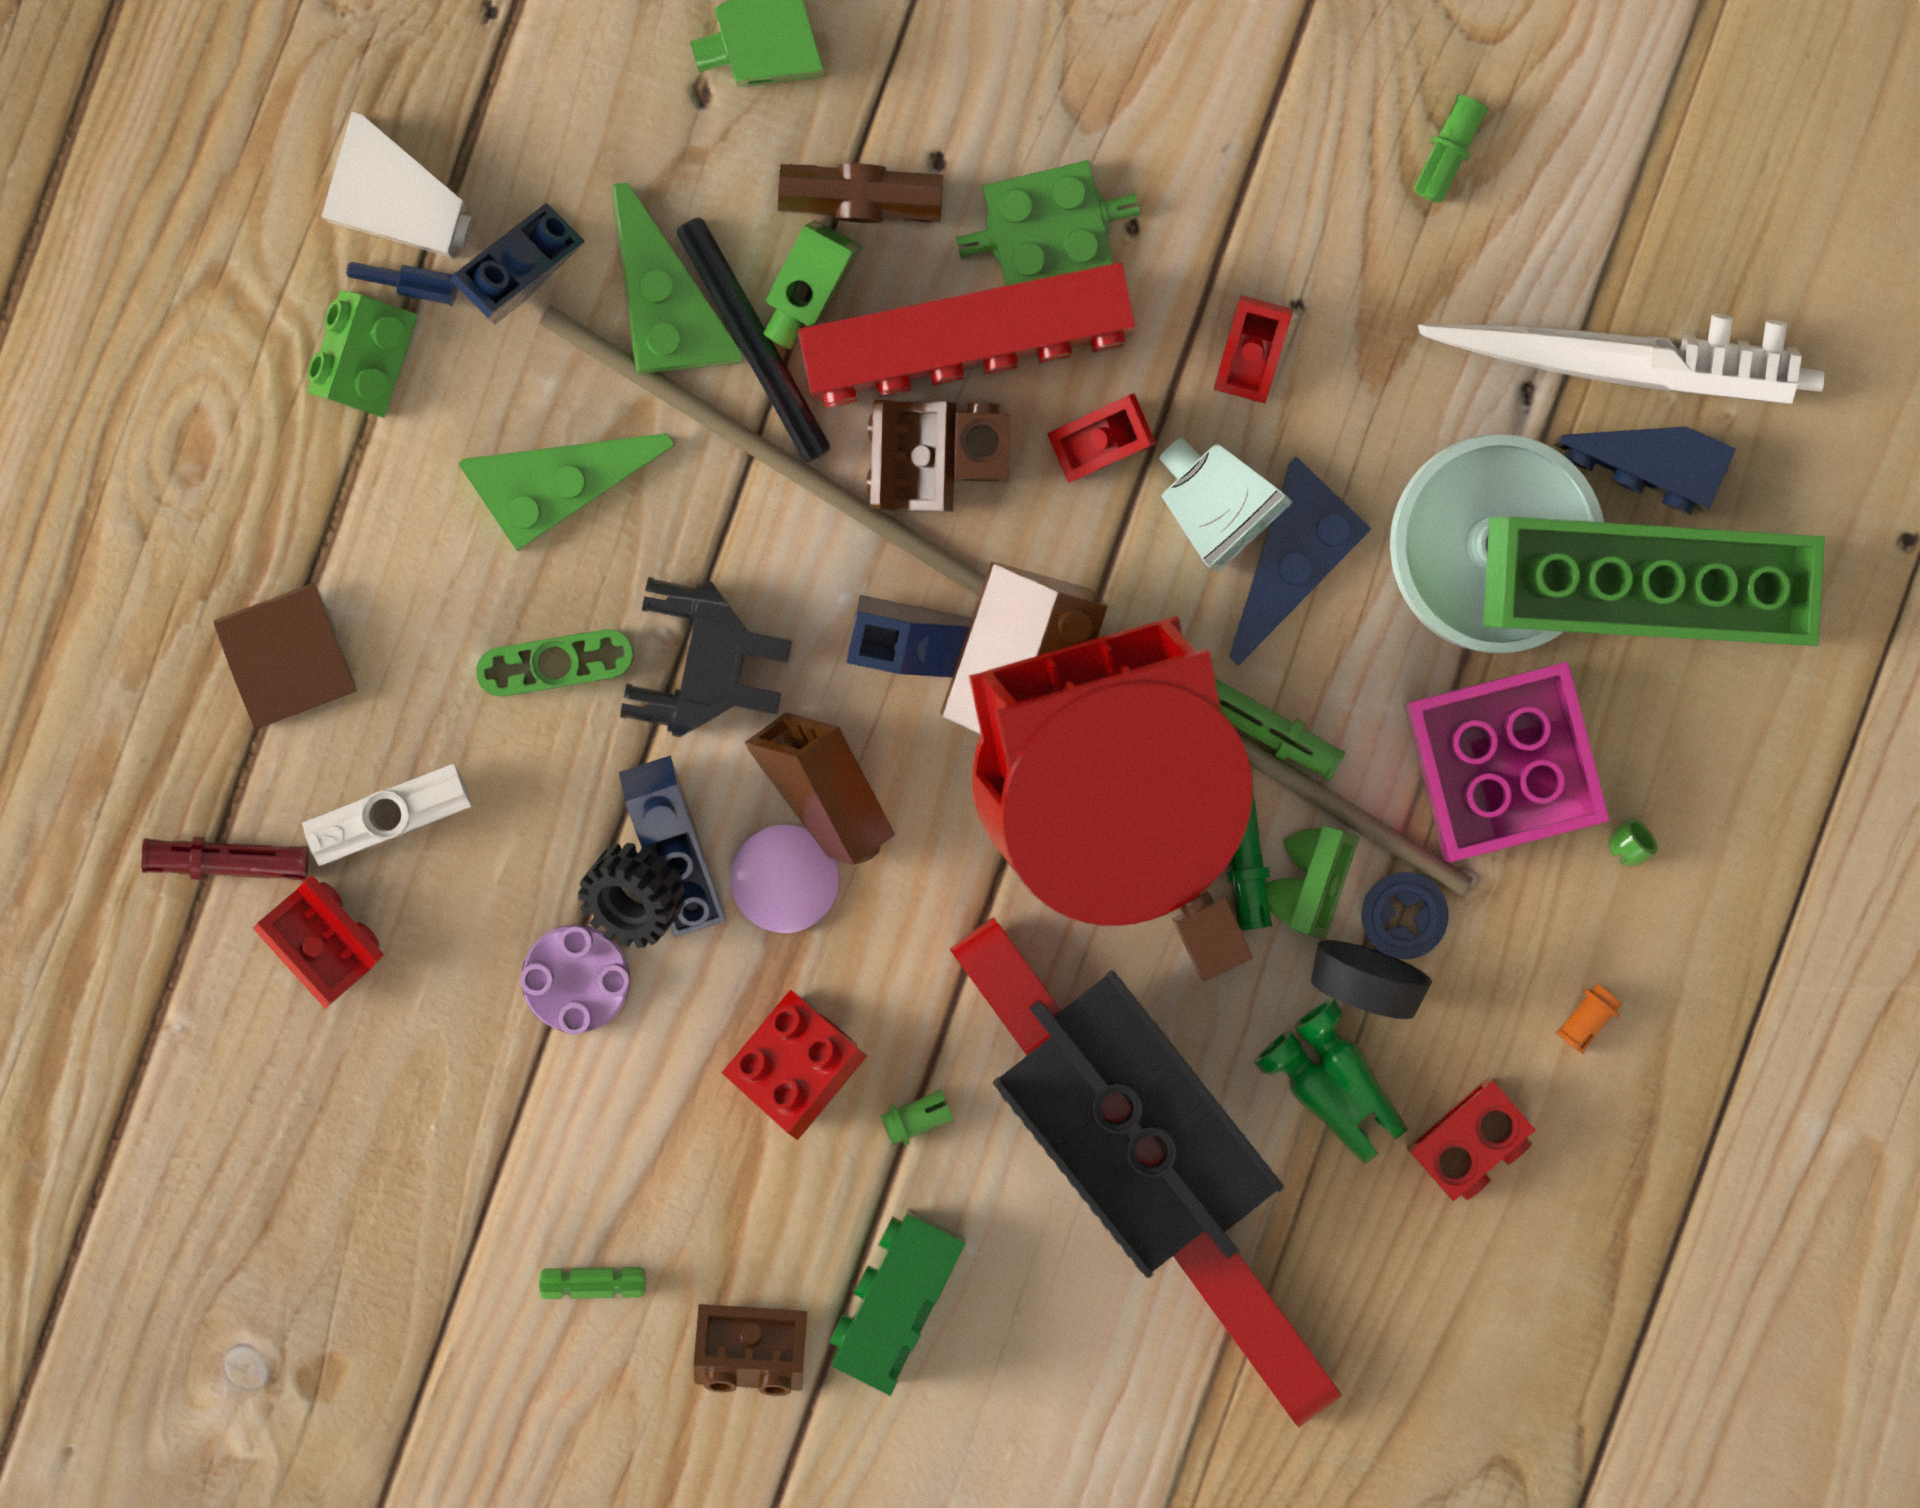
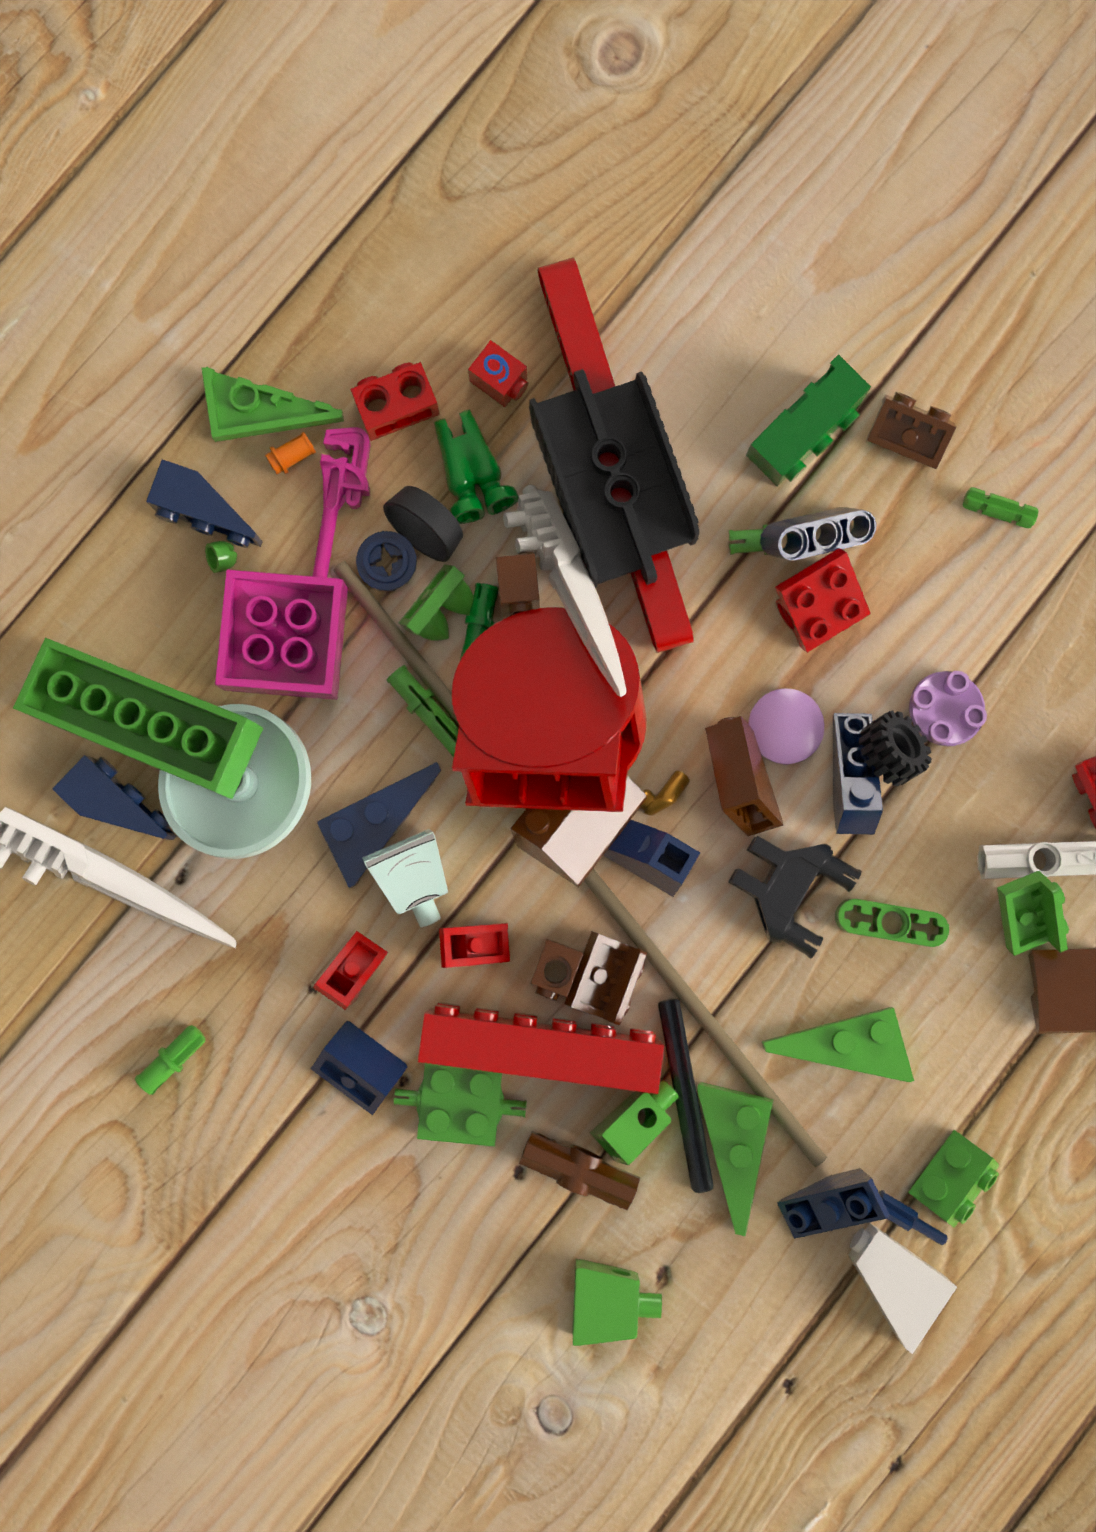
camera: 160 degrees left, 5 degrees down
(378, 736) = (1032, 913): none -> bright green bracket
(855, 1153) = (802, 533): none -> beam
(913, 728) = (667, 796): none -> pearl gold arm
(1181, 1009) = (558, 551): none -> white piece
(1197, 225) = (359, 1067): none -> dark blue panel
(1341, 1226) = (498, 374): none -> red brick
(1504, 999) = (341, 484): none -> dark pink piece
(1666, 1061) = (247, 409): none -> bright green wing
(1698, 908) = (189, 497): none -> dark blue slope

